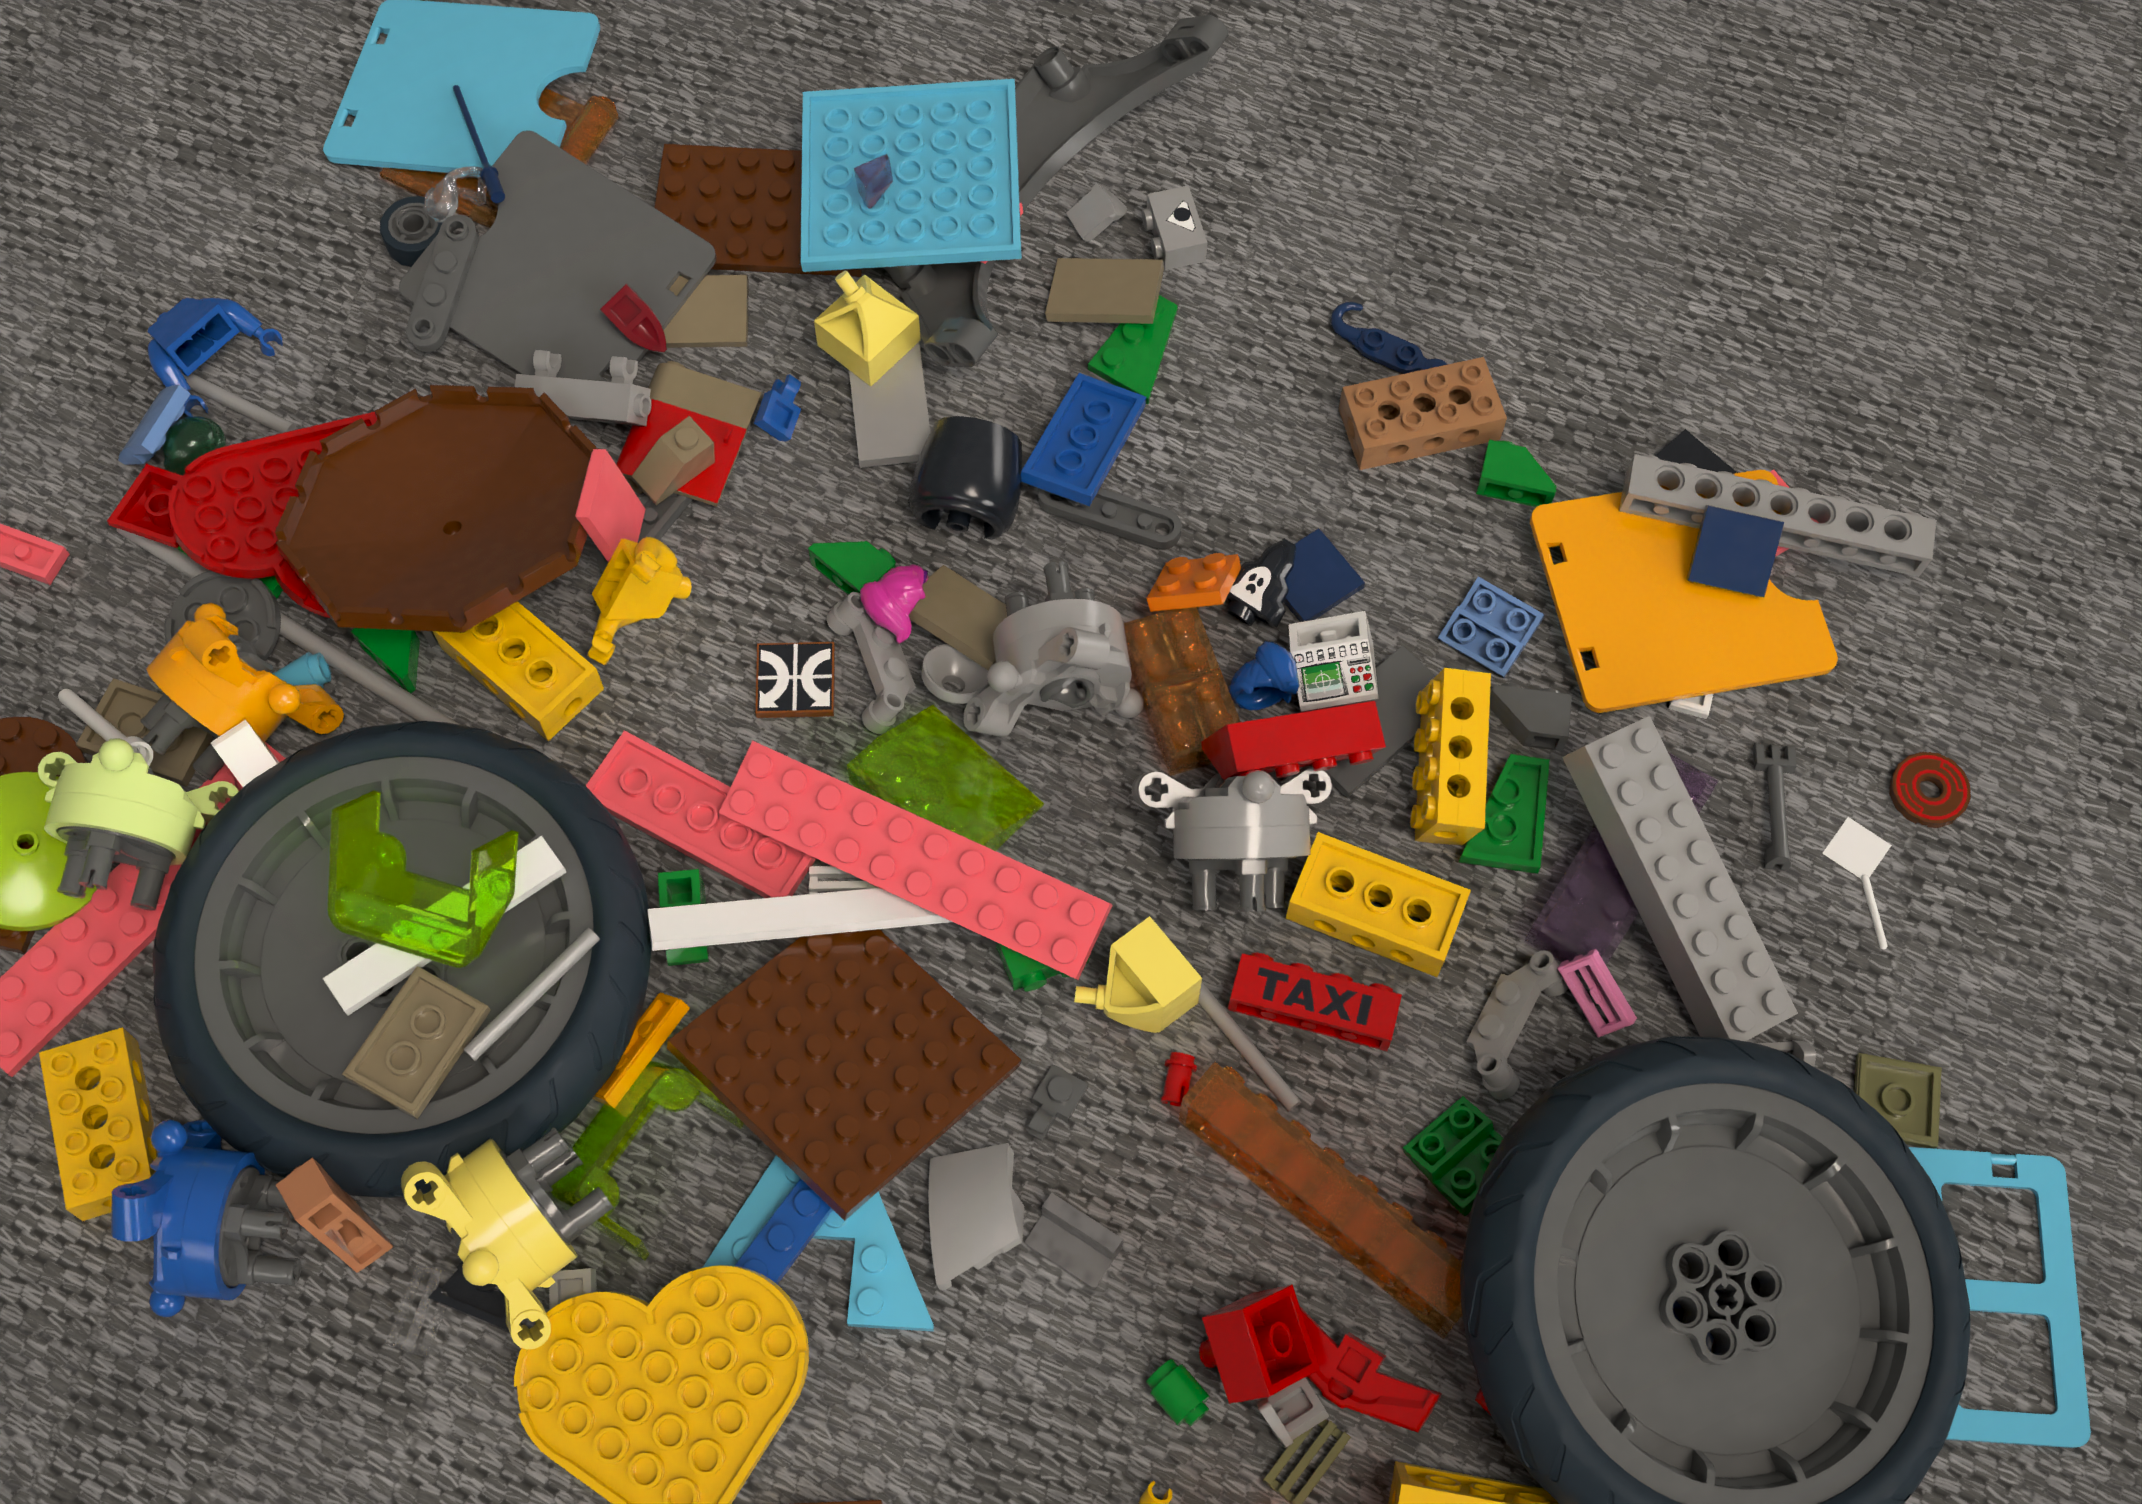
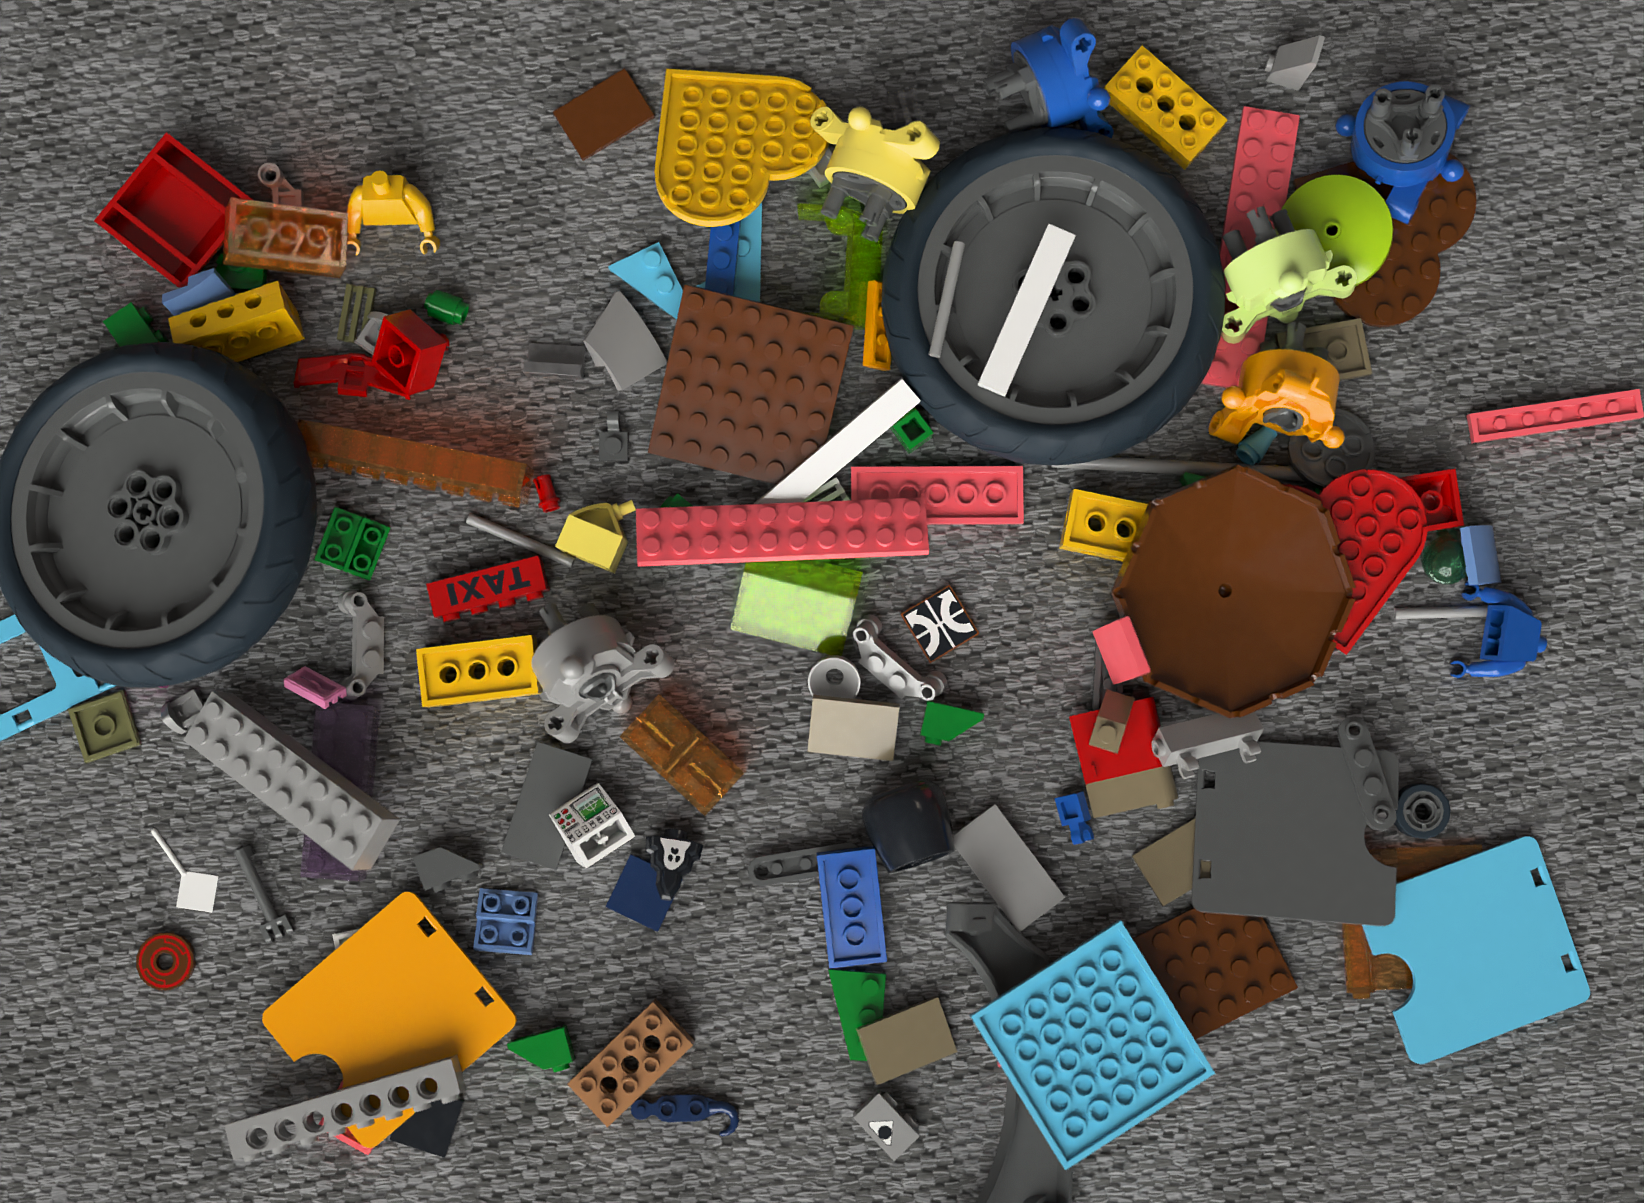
camera: 155 degrees right, 20 degrees up
(101, 725) = (1306, 314): white piece -> none
(244, 752) = (1232, 356): white slope -> none
(332, 1216) = (985, 122): nougat slope -> none
(407, 911) = (1049, 303): clear neon green windscreen -> none
(416, 1042) = (995, 233): dark tan tile -> none
(443, 199) = (1415, 839): clear piece -> none
(488, 173) = (1391, 872): dark blue piece -> none
(634, 587) = (1081, 619): yellow torso -> none
(635, 319) = (1214, 820): dark red plate -> none
(866, 328) = (1047, 903): light yellow piece -> none
(873, 179) = (1108, 1013): slope -> none
(894, 597) = (903, 709): dark pink hair -> none
(1056, 658) = (765, 718): light grey piece -> none
(1096, 212) = (950, 1107): light grey tile -> none
(1194, 582) = (714, 832): orange plate -> none
(1265, 679) = (630, 789): blue hair -> none
(1297, 741) = (580, 739): red slope -> none
(1451, 757) = (478, 794): yellow brick -> none
(1513, 818) = (425, 785): green wing -> none
(1735, 550) = (360, 1058): dark blue tile -> none

